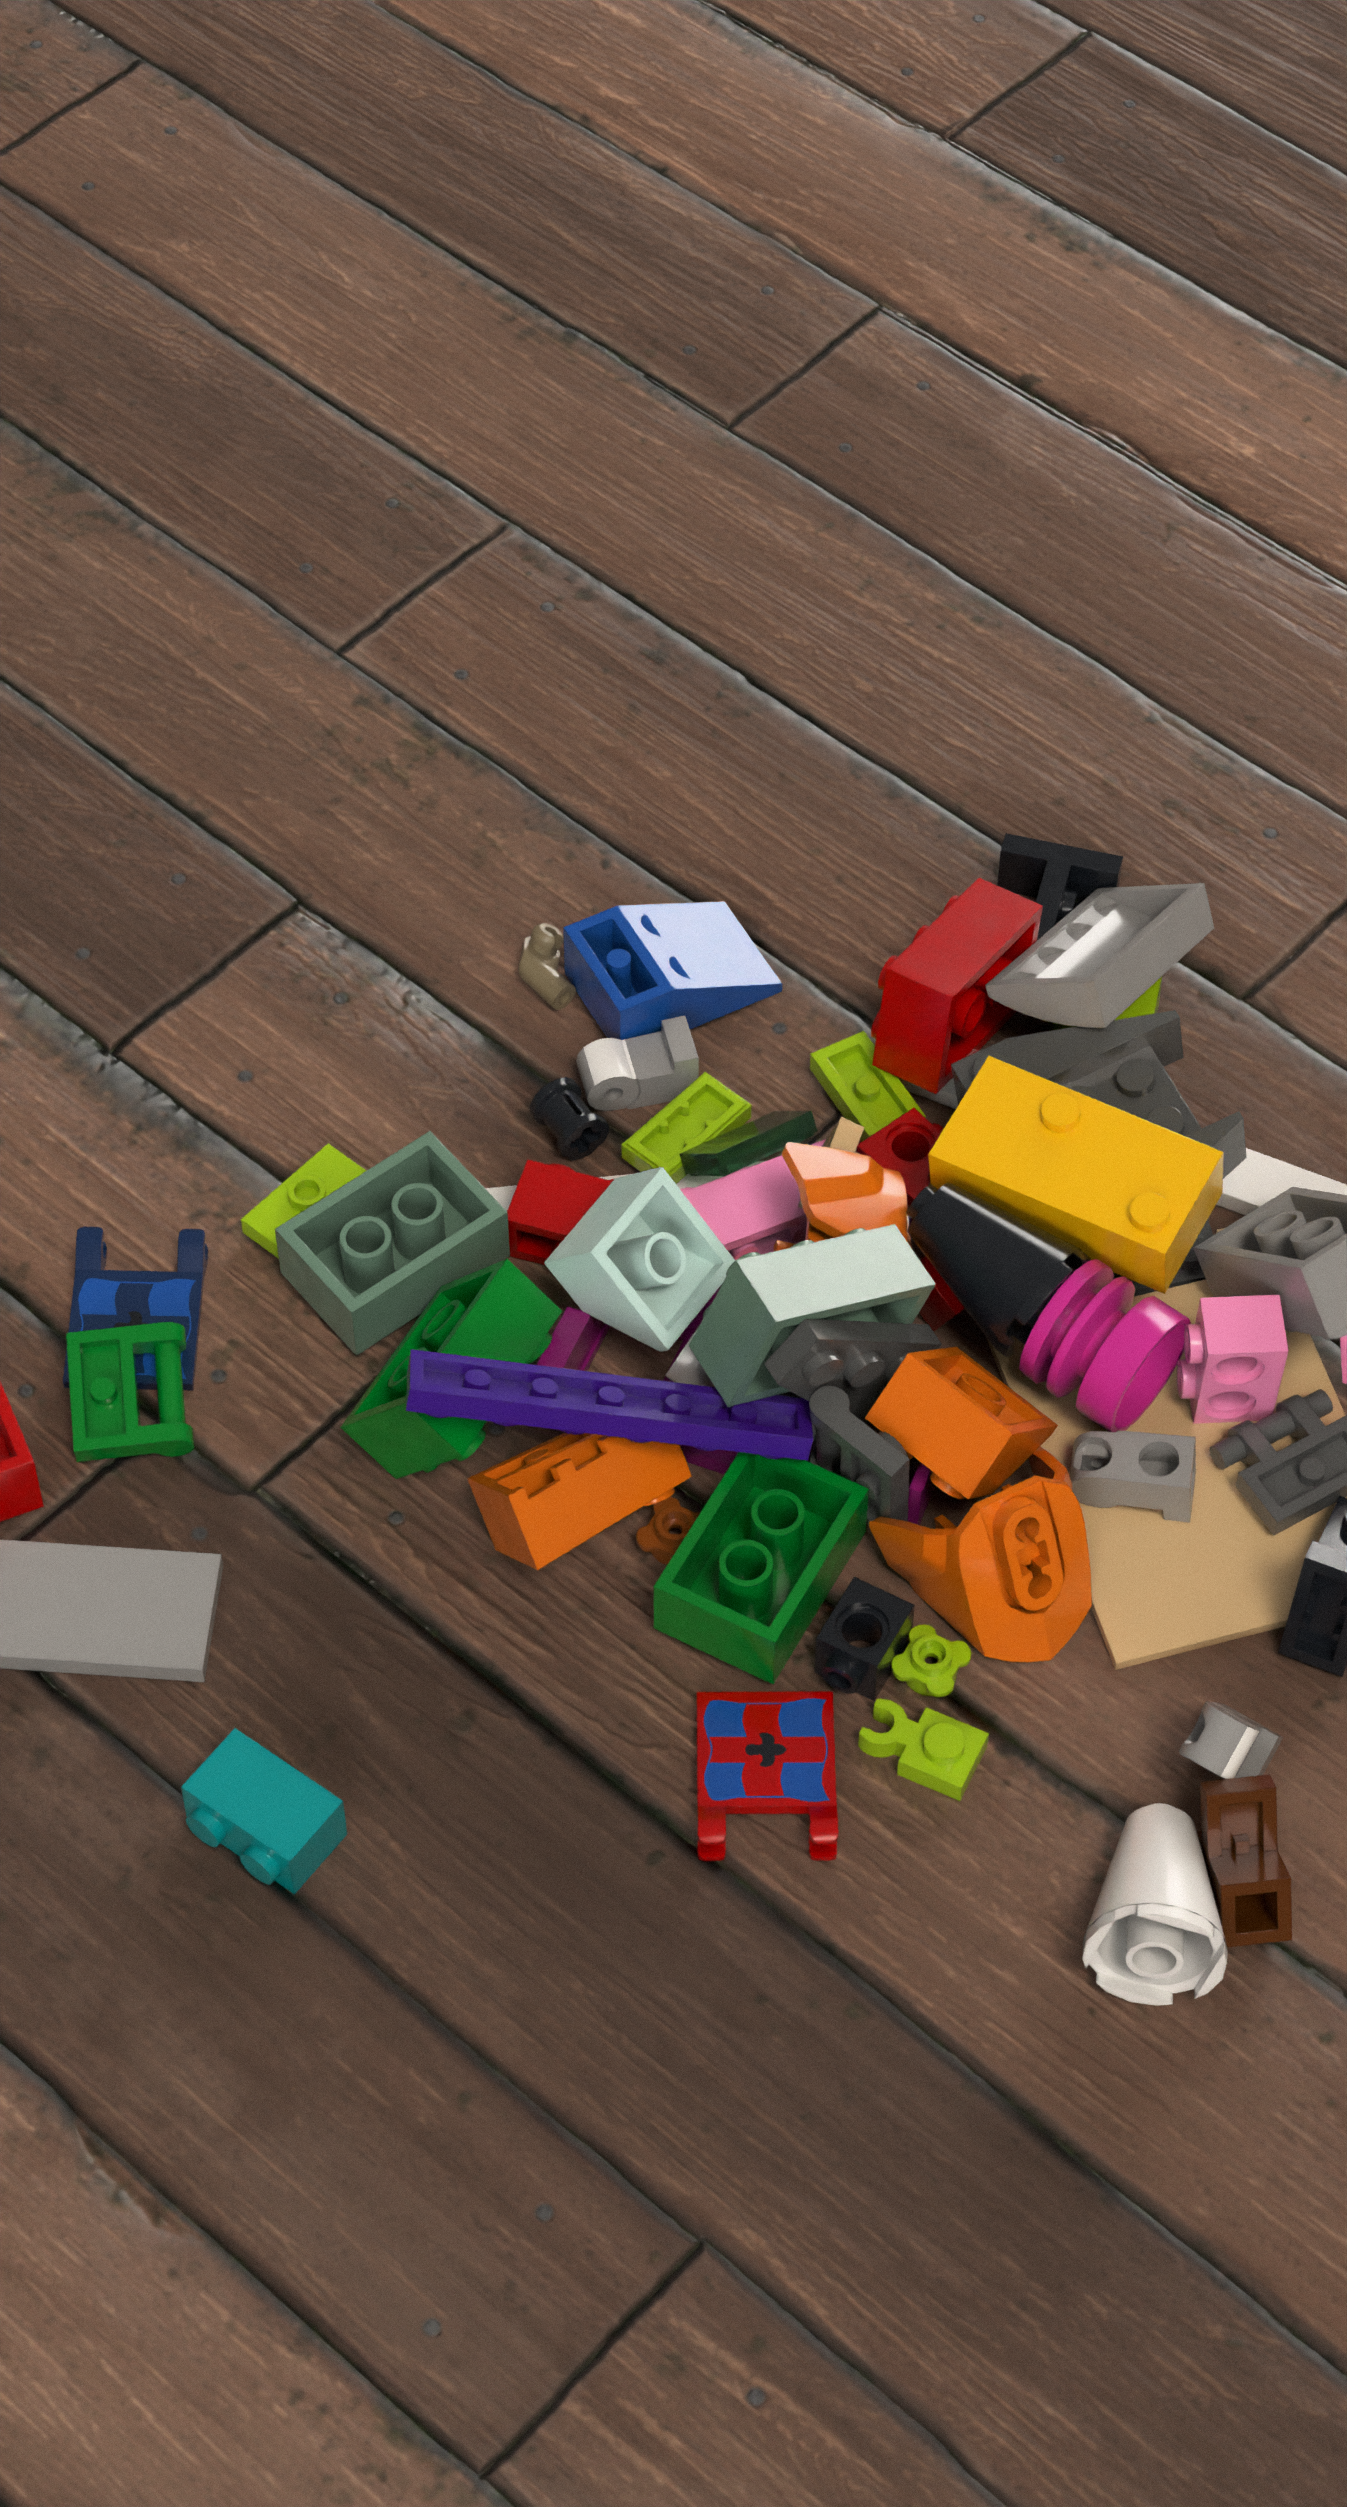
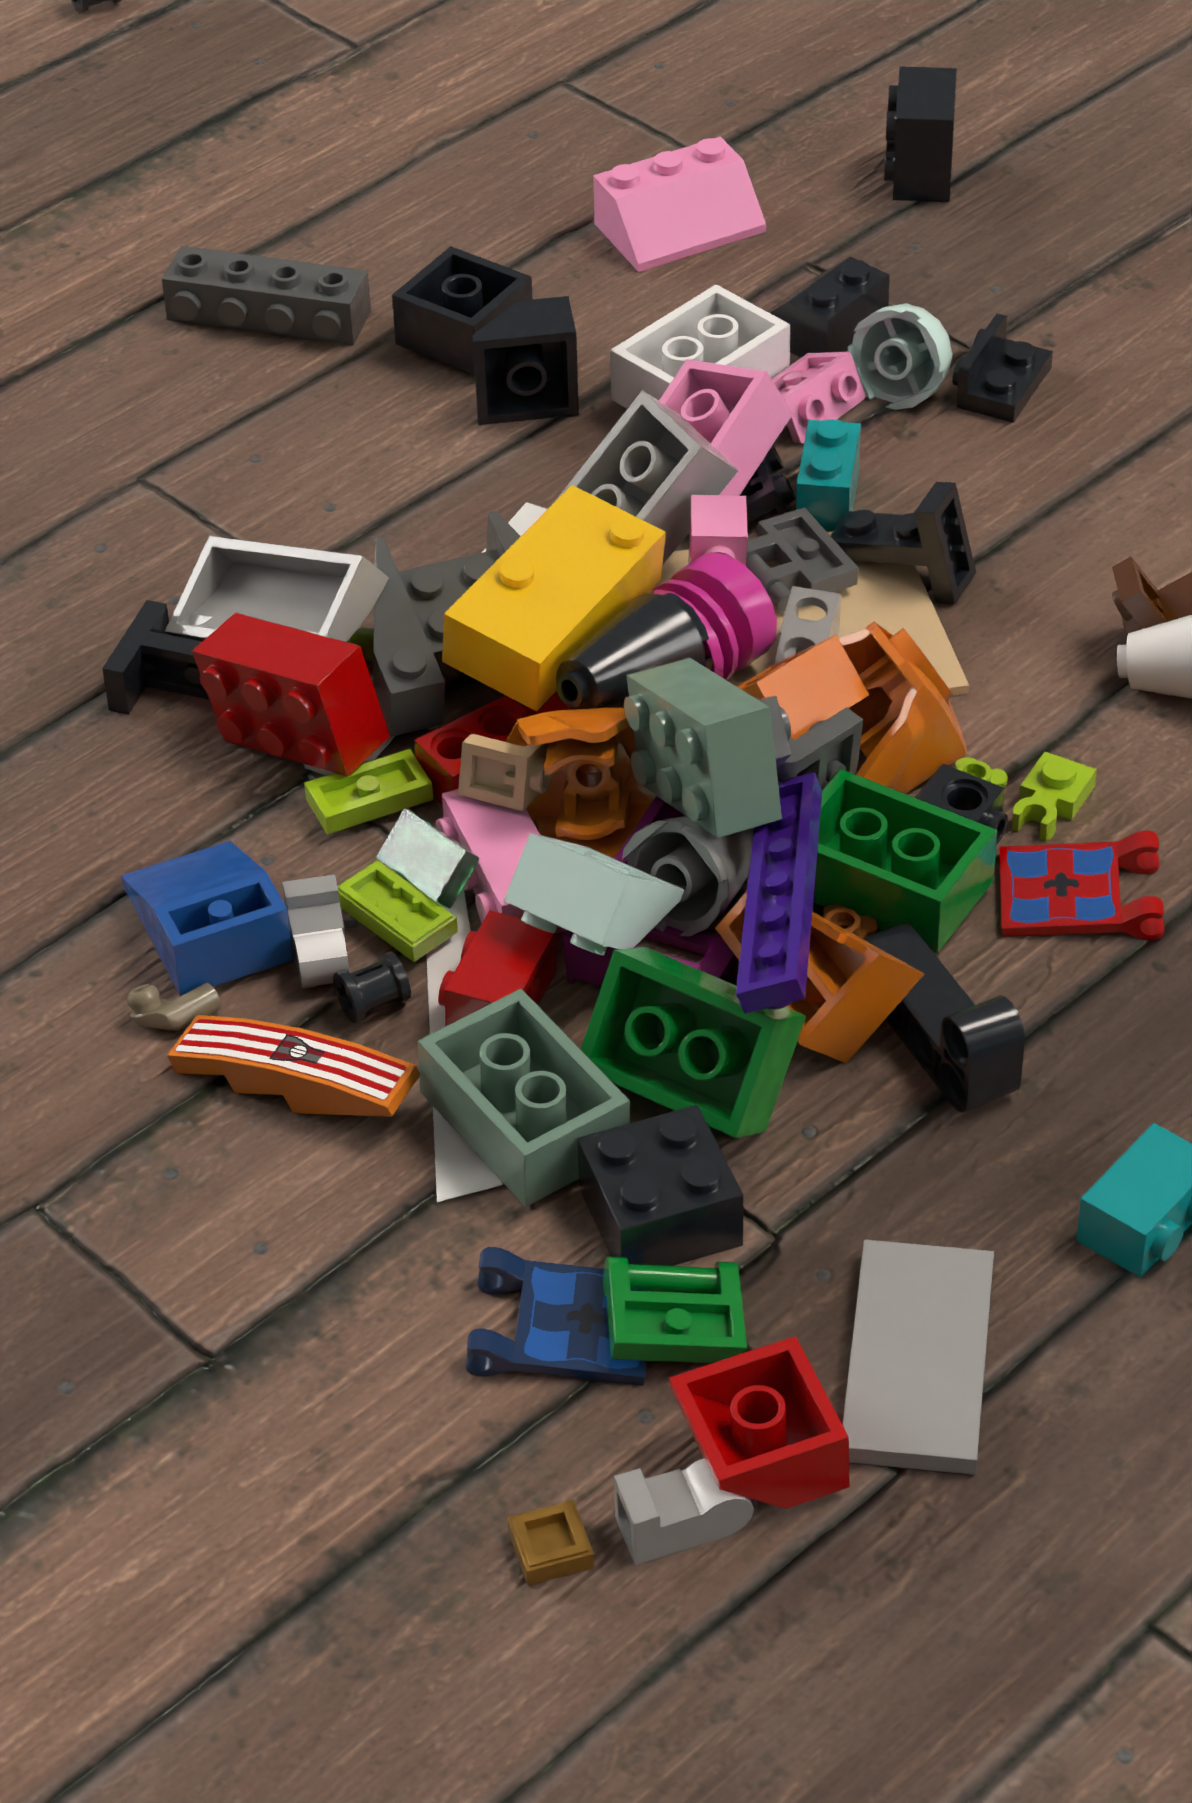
camera: 85 degrees left, 10 degrees down
(275, 1370) = (661, 1189): none -> black brick
(308, 1185) = (446, 1183): lime plate -> none
(451, 1060) = (304, 1066): none -> slope
(530, 1618) = (962, 1046): none -> black beam
(1230, 1743) = (1069, 603): light grey leg -> none

